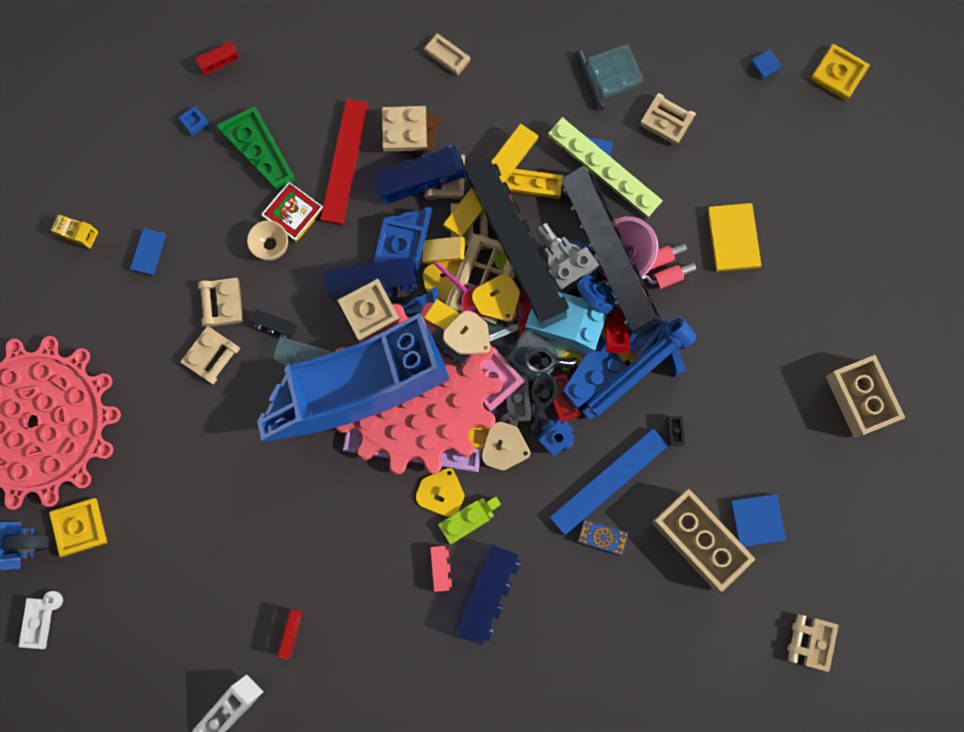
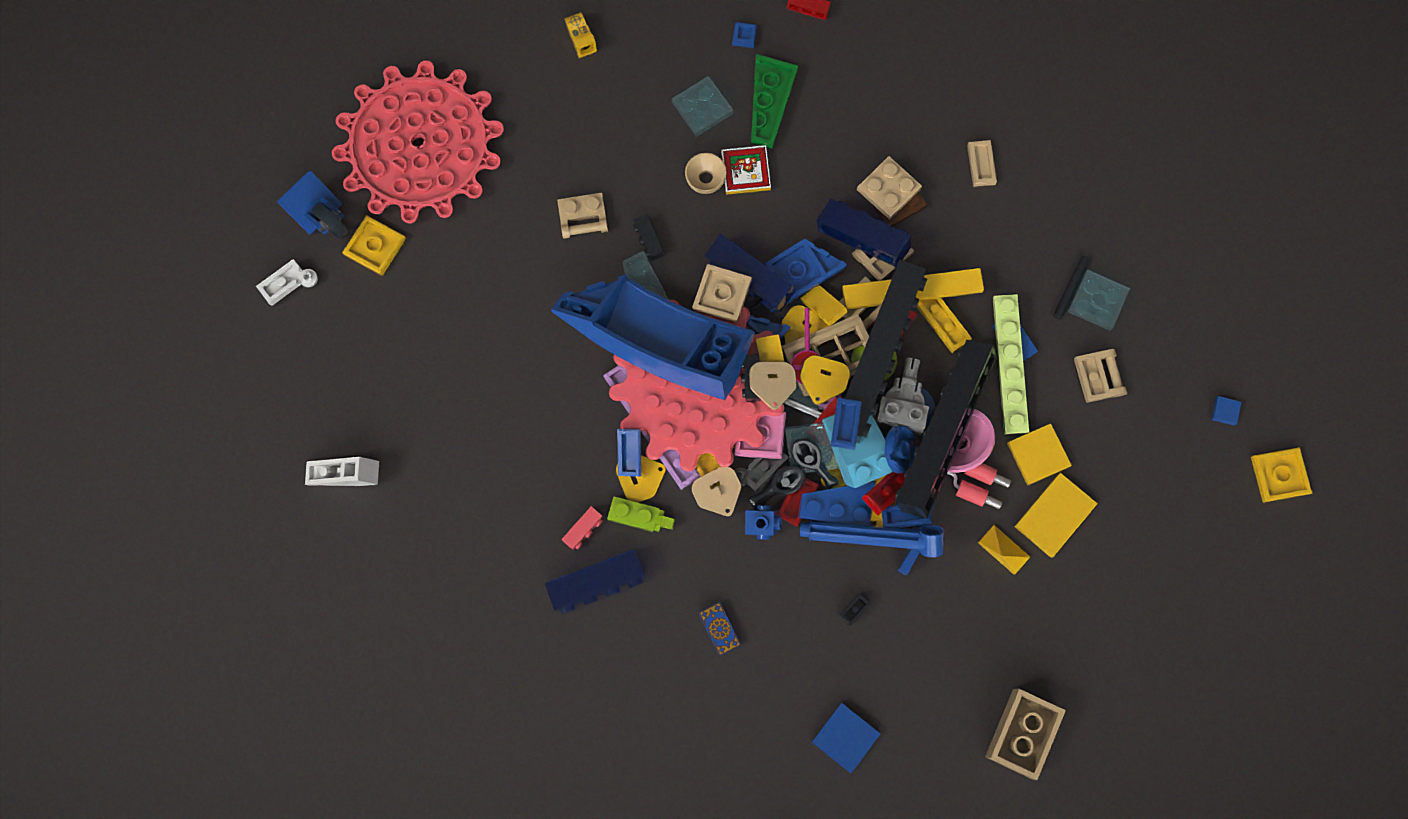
camera: 50 degrees right, 0 degrees up
(148, 252) = (615, 99): blue tile -> none
(216, 197) = (702, 106): none -> clear light blue plate
(227, 301) = (633, 190): tan plate -> none
(290, 634) = (435, 464): red tile -> none
(344, 162) = (821, 170): red tile -> none
(418, 483) = (629, 452): none -> tile
(548, 311) = (846, 423): none -> blue tile
(608, 482) = (767, 594): blue tile -> none
(683, 208) = (1039, 454): none -> yellow tile
(703, 541) = (788, 707): tan brick -> none
(725, 293) = (1004, 549): none -> yellow slope

